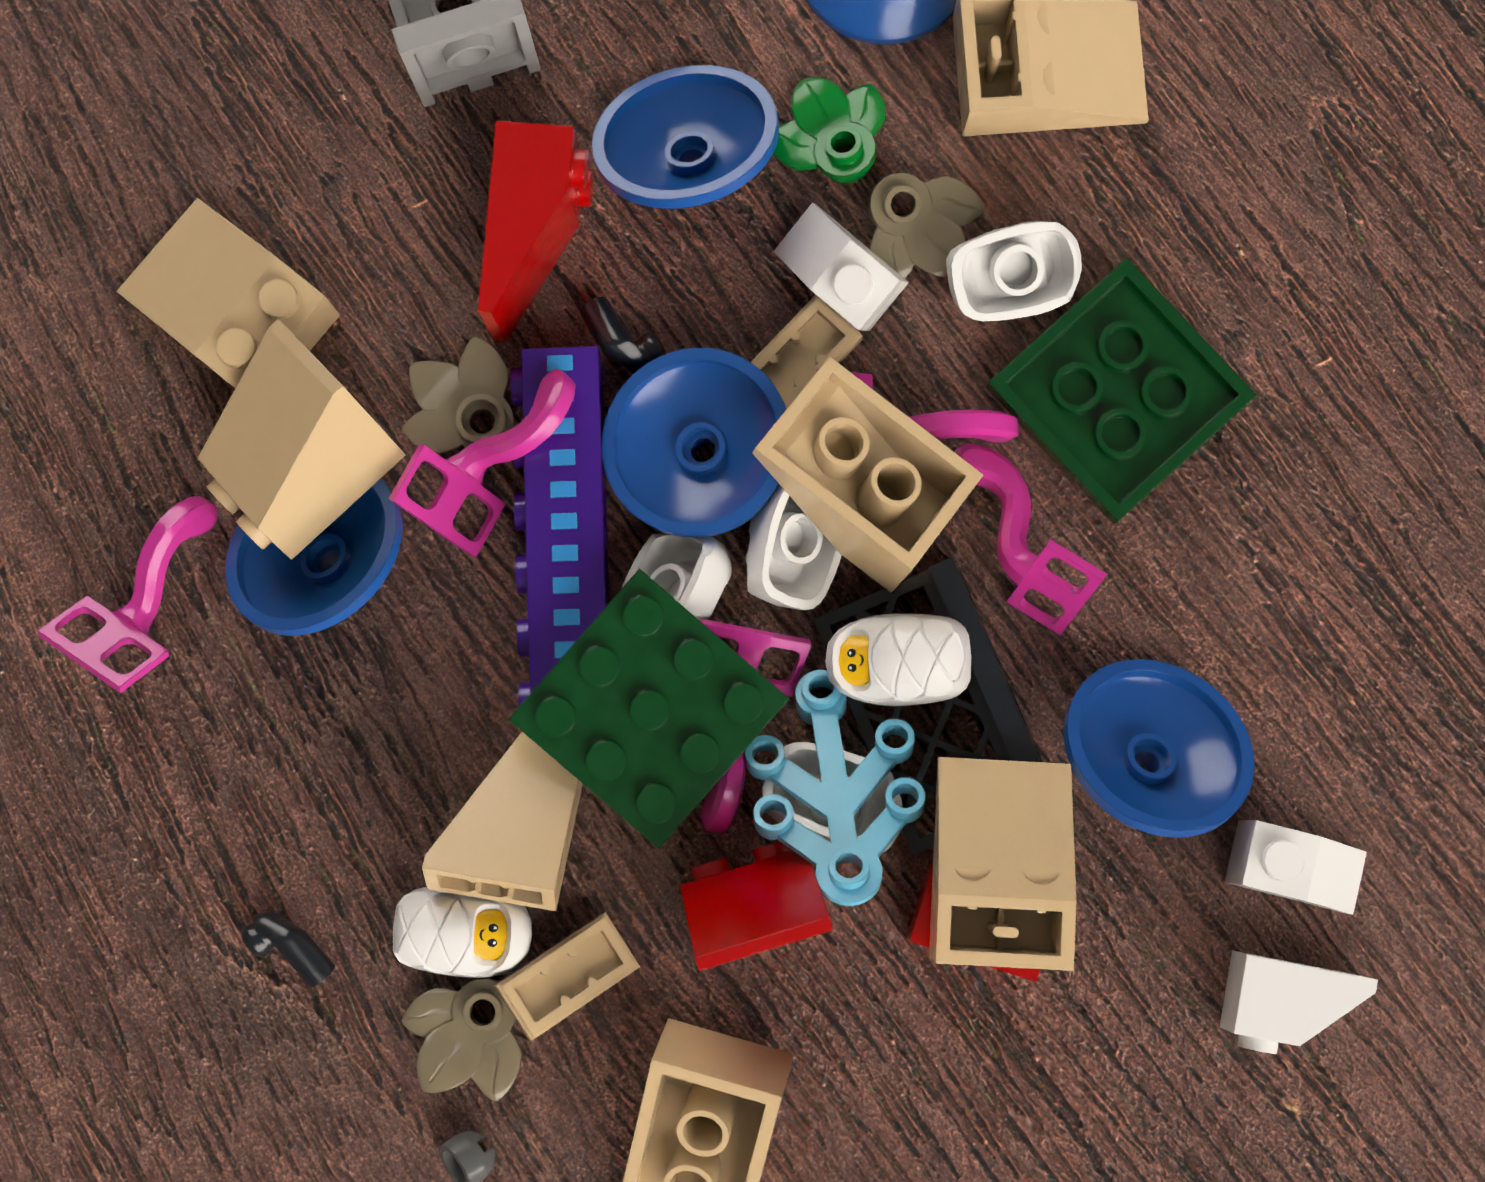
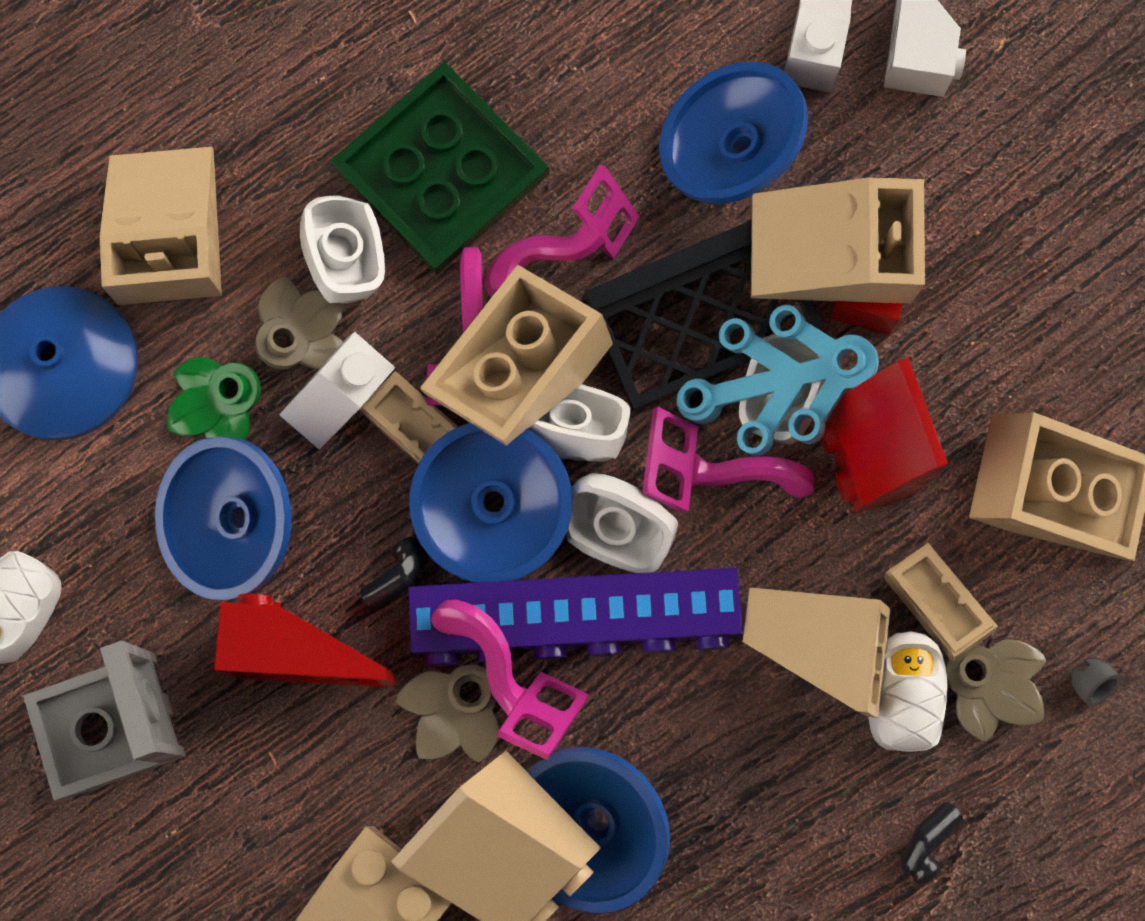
camera: 95 degrees left, 5 degrees down
(648, 708) = (721, 530): dark green plate -> none
(900, 659) = (668, 332): white piece -> none

